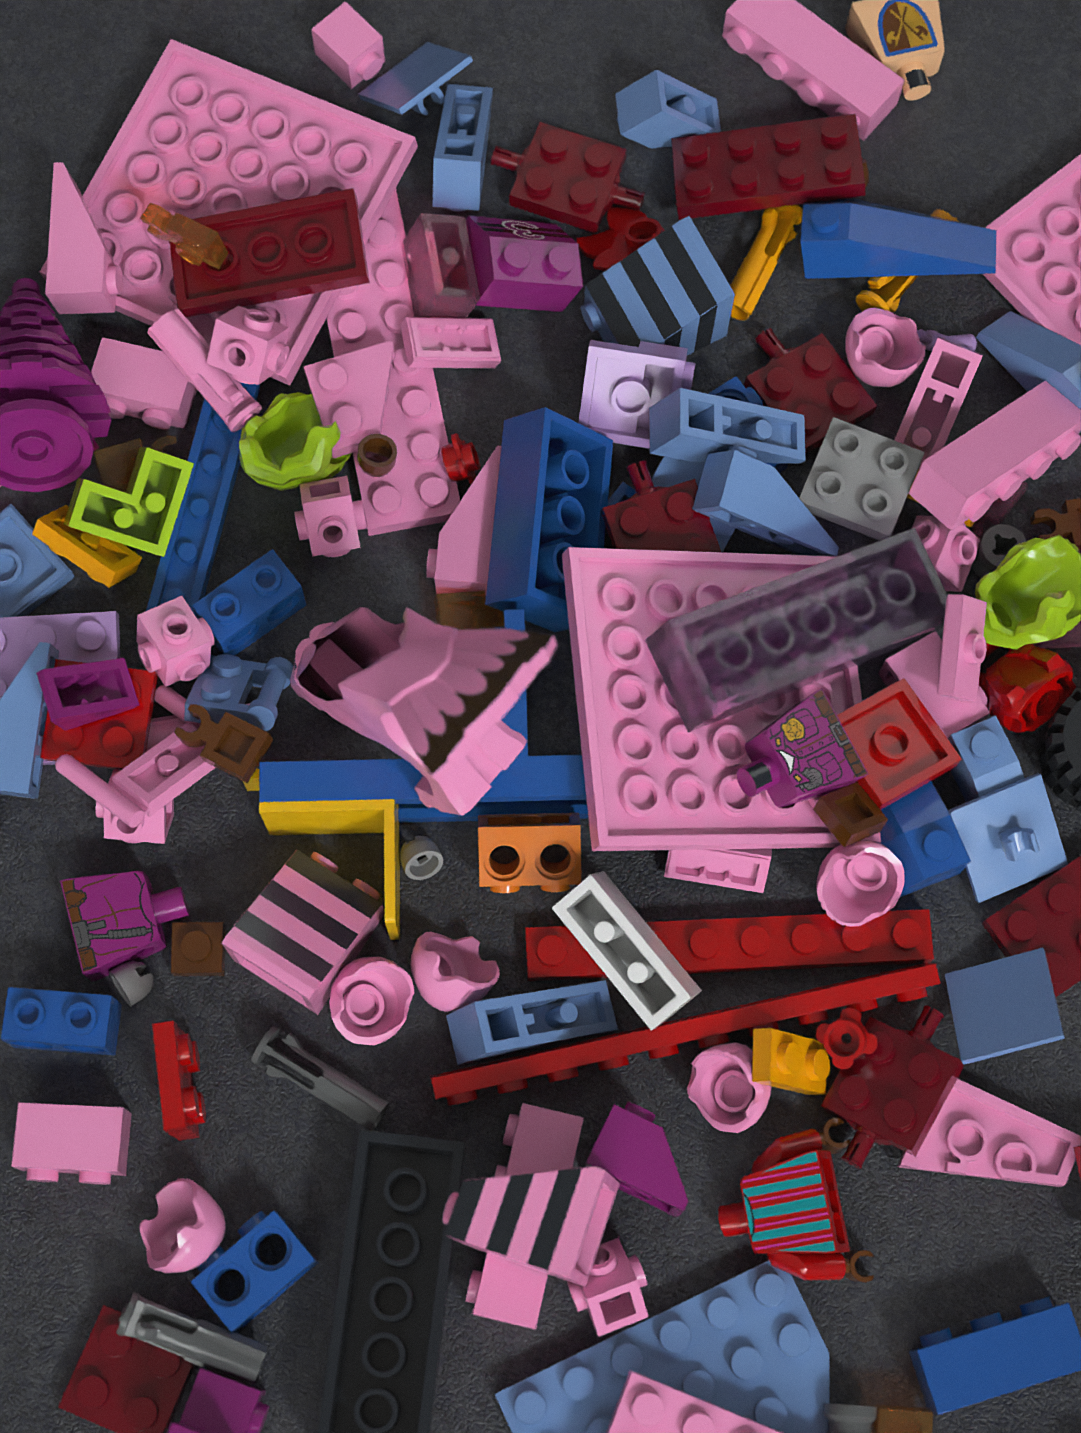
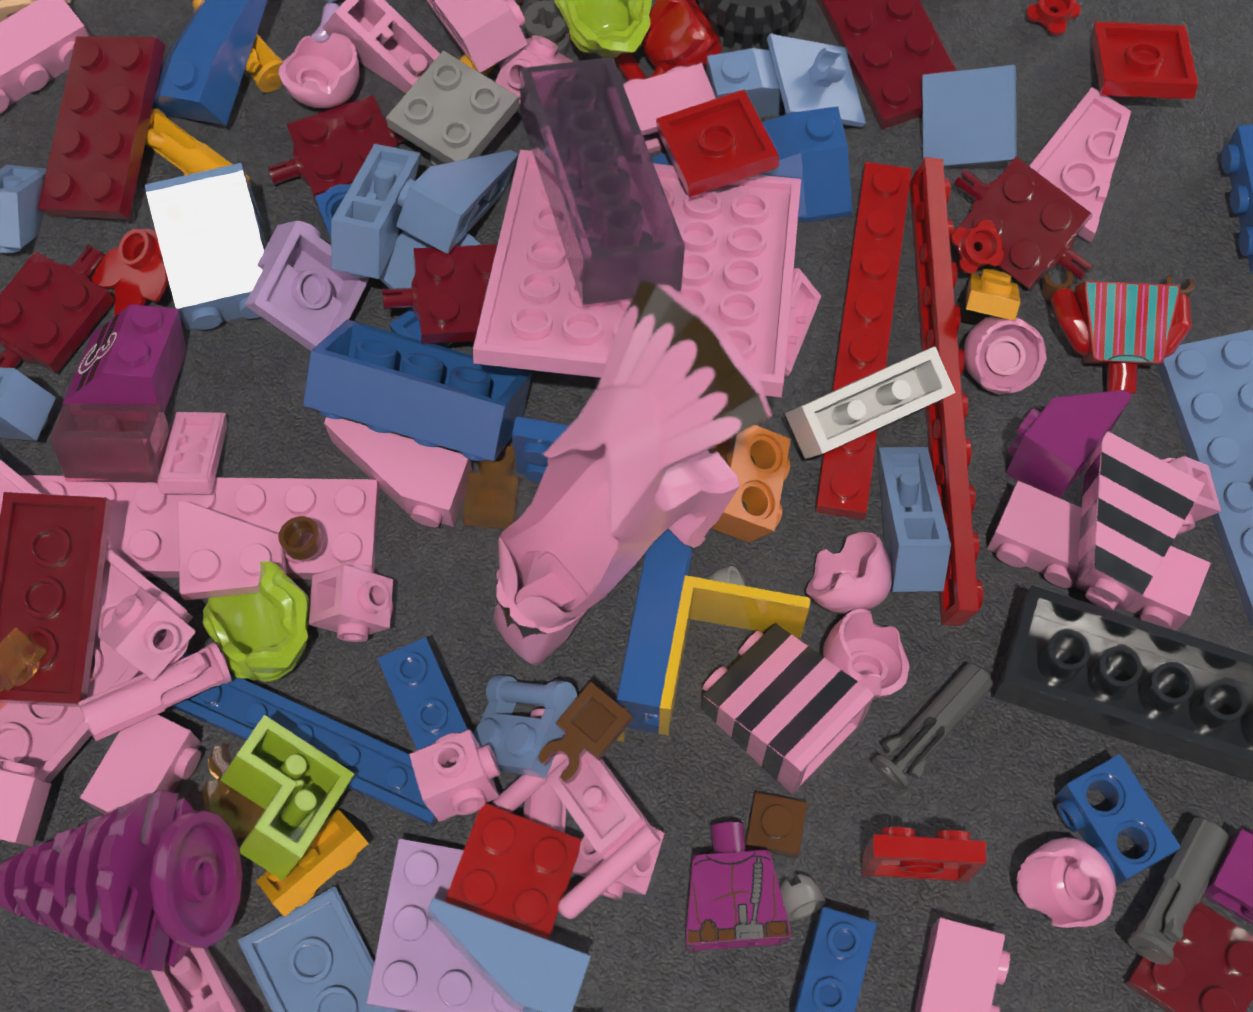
camera: 75 degrees left, 5 degrees down
(87, 692) = (497, 867): magenta slope -> none
(460, 459) = (322, 467): red plate -> none
(801, 755) = (717, 207): magenta torso -> none
(850, 814) = (779, 186): reddish brown plate -> none
(859, 882) = (837, 201): bright pink hair -> none
(962, 647) = (645, 57): bright pink plate -> none

